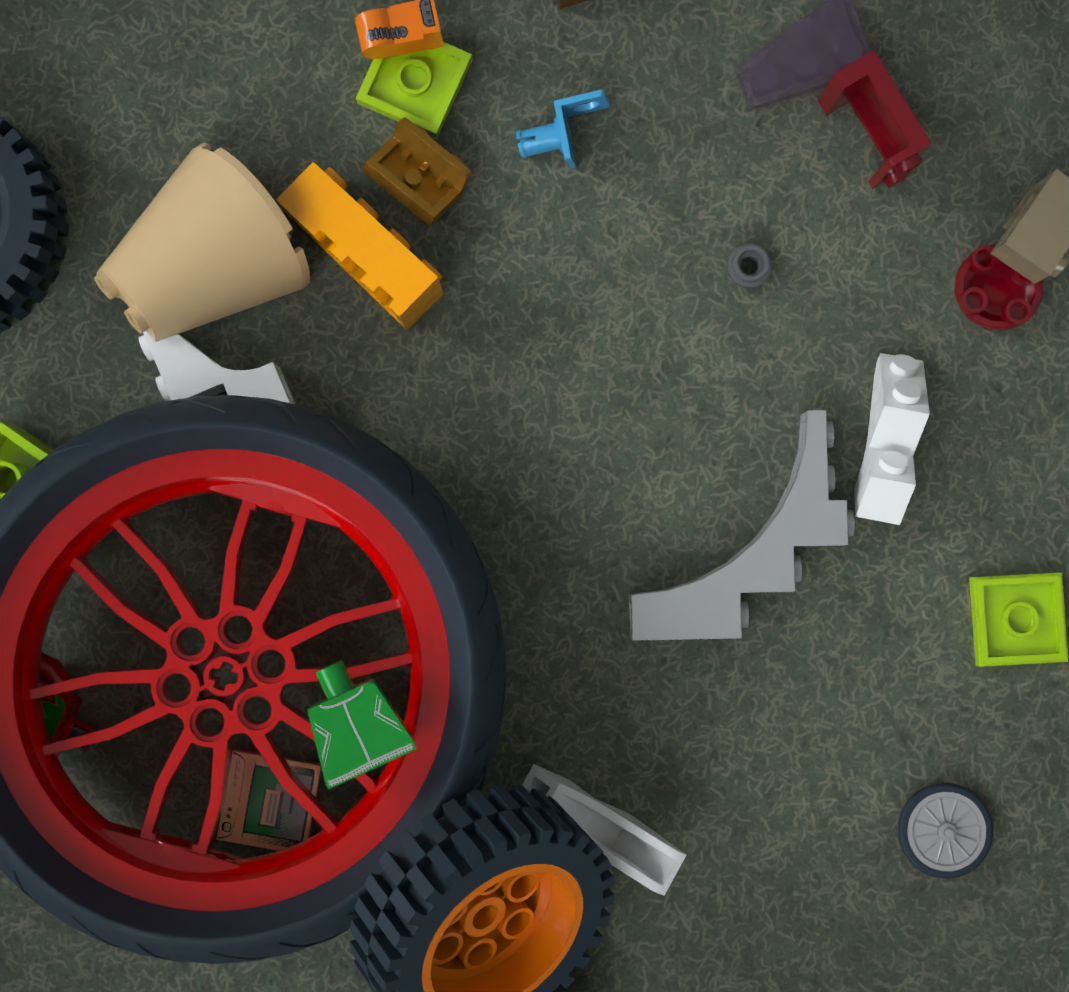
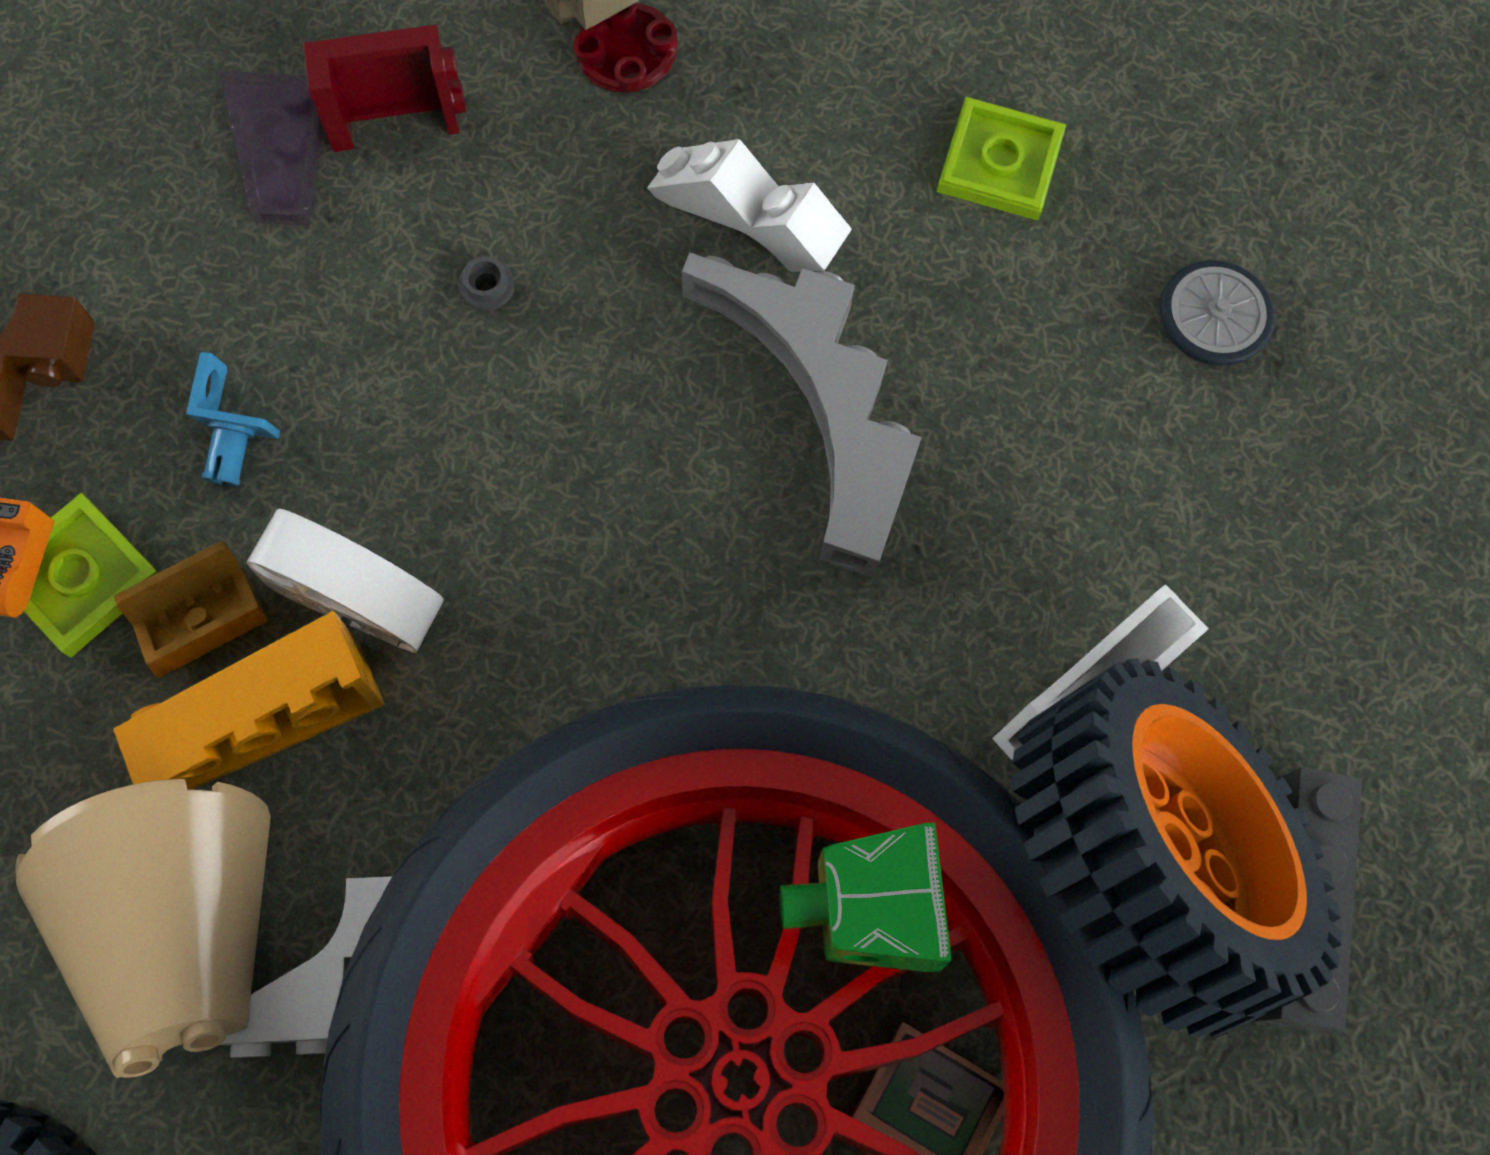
camera: 75 degrees left, 15 degrees down
(474, 269) = (339, 575): none -> white beam

